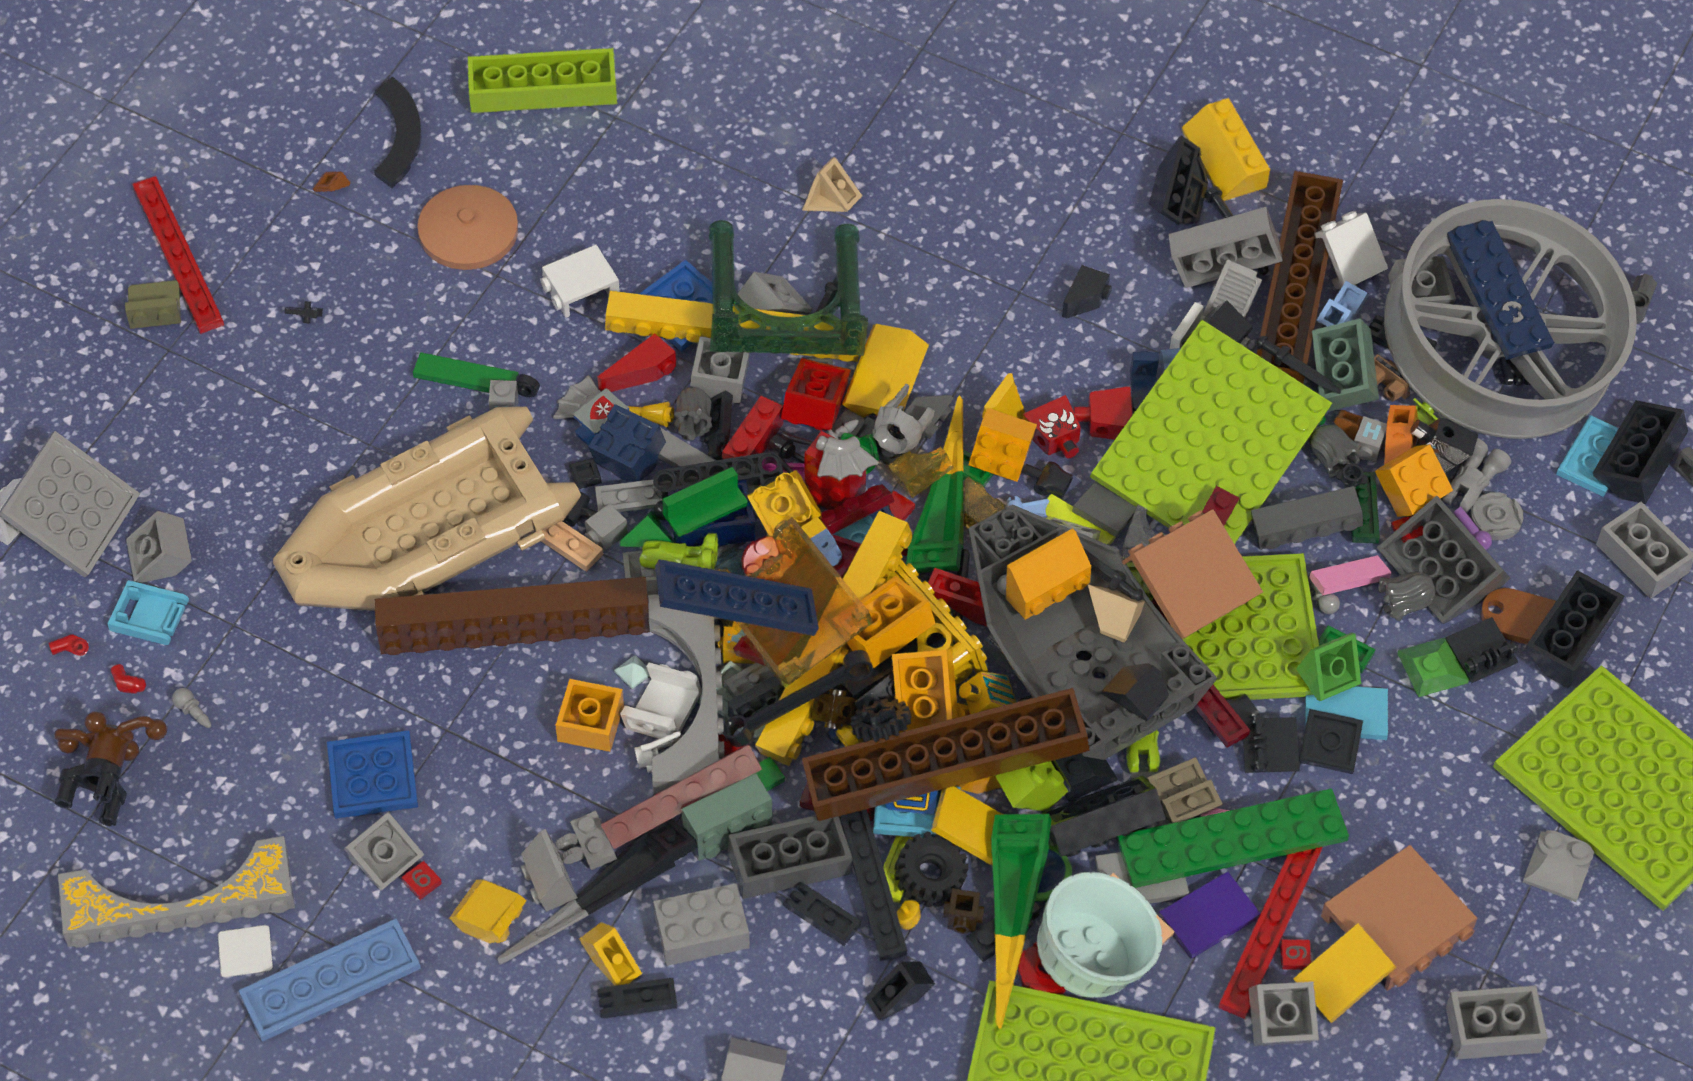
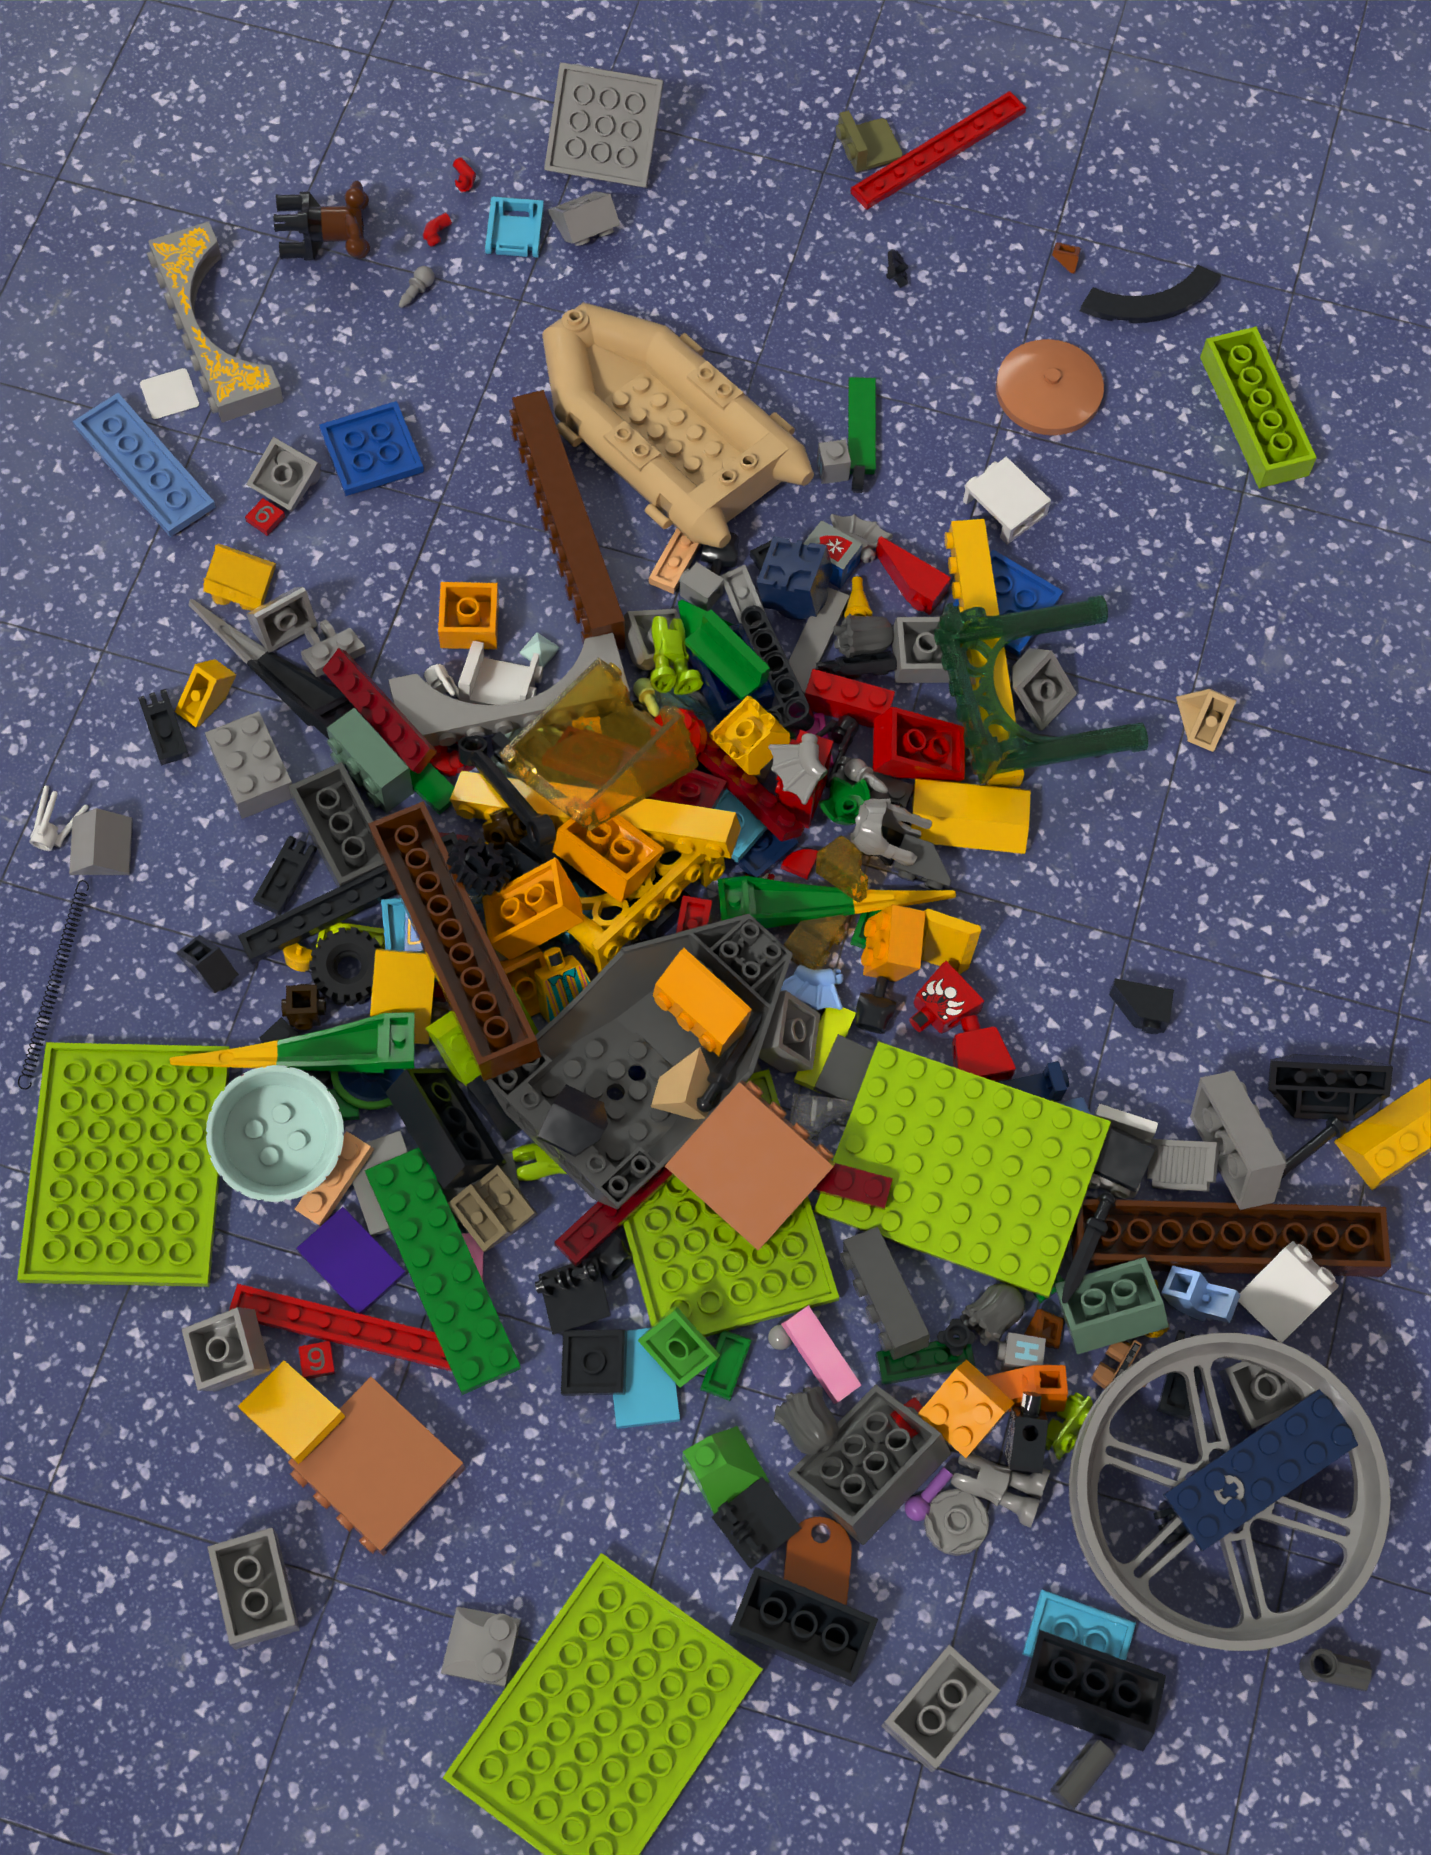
camera: 75 degrees right, 10 degrees up
(736, 597) = (579, 687): dark blue plate -> none
(823, 540) = (704, 775): medium blue leg -> none

